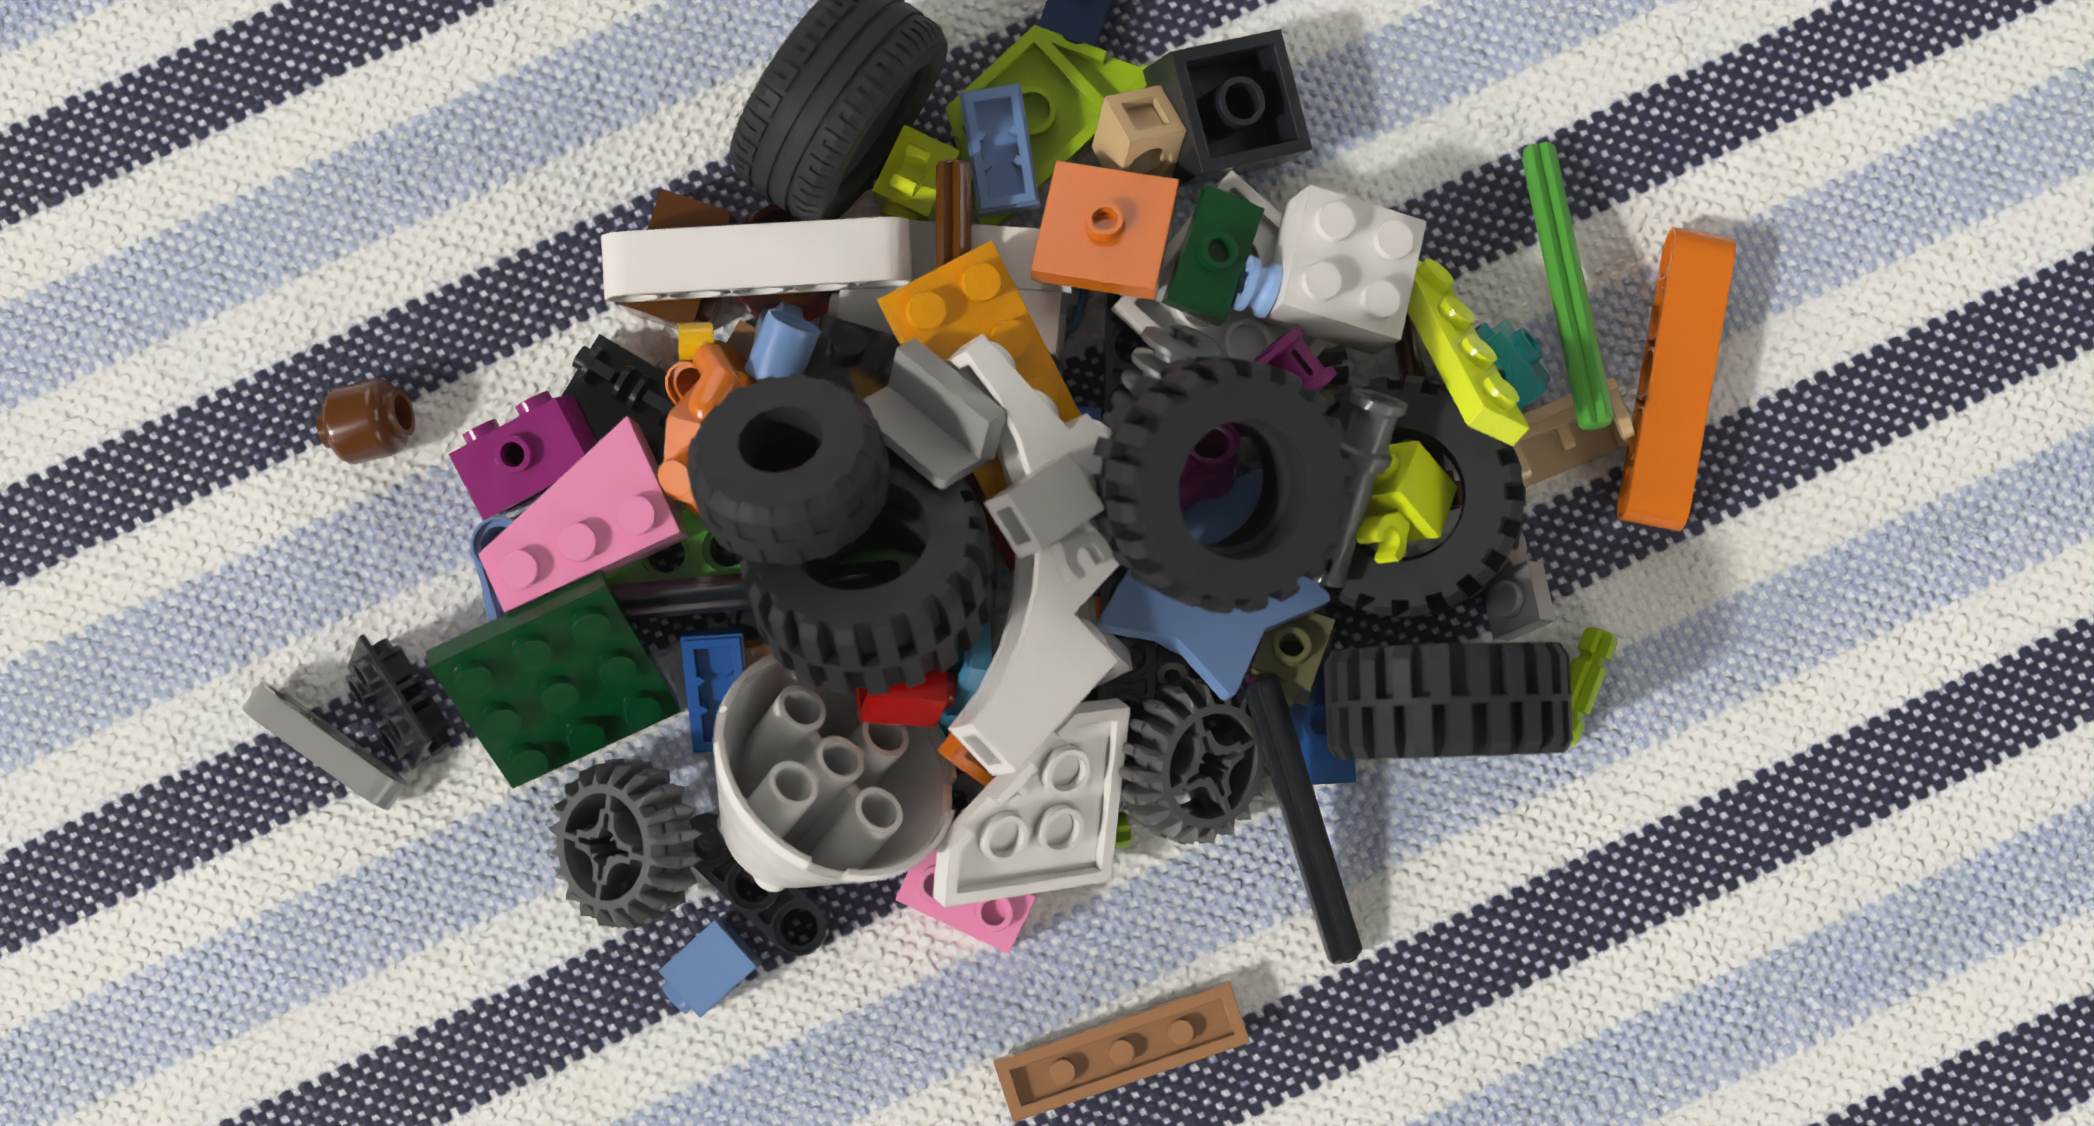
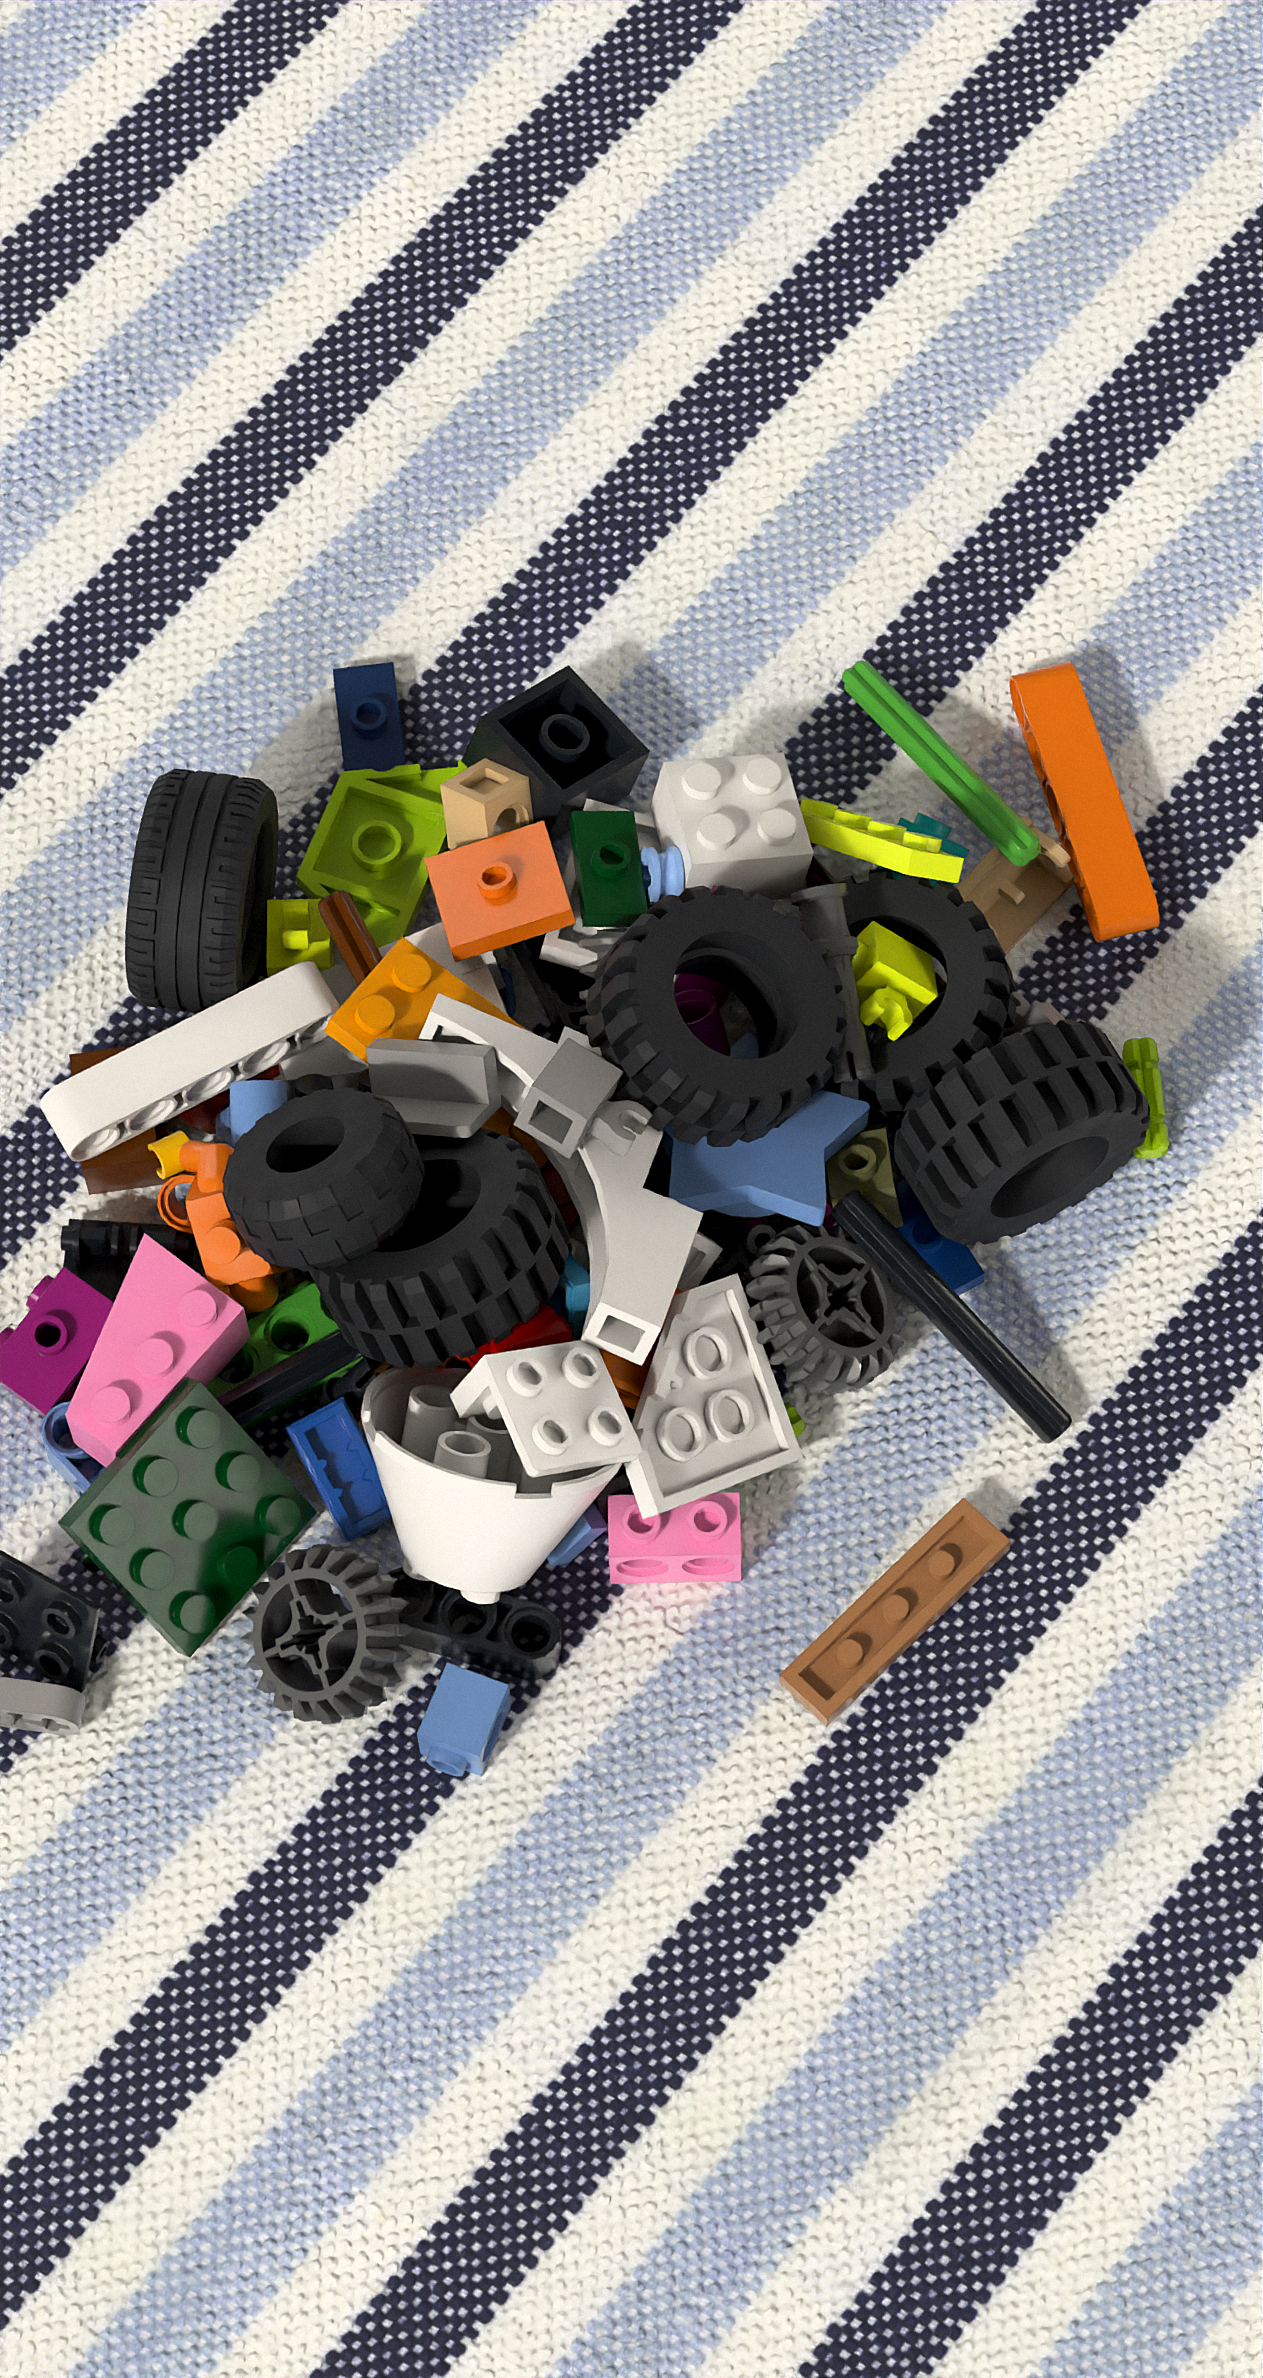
camera: 25 degrees left, 20 degrees down
(891, 788) = (554, 1406): none -> white bracket
(999, 150) = (356, 863): medium blue plate -> none

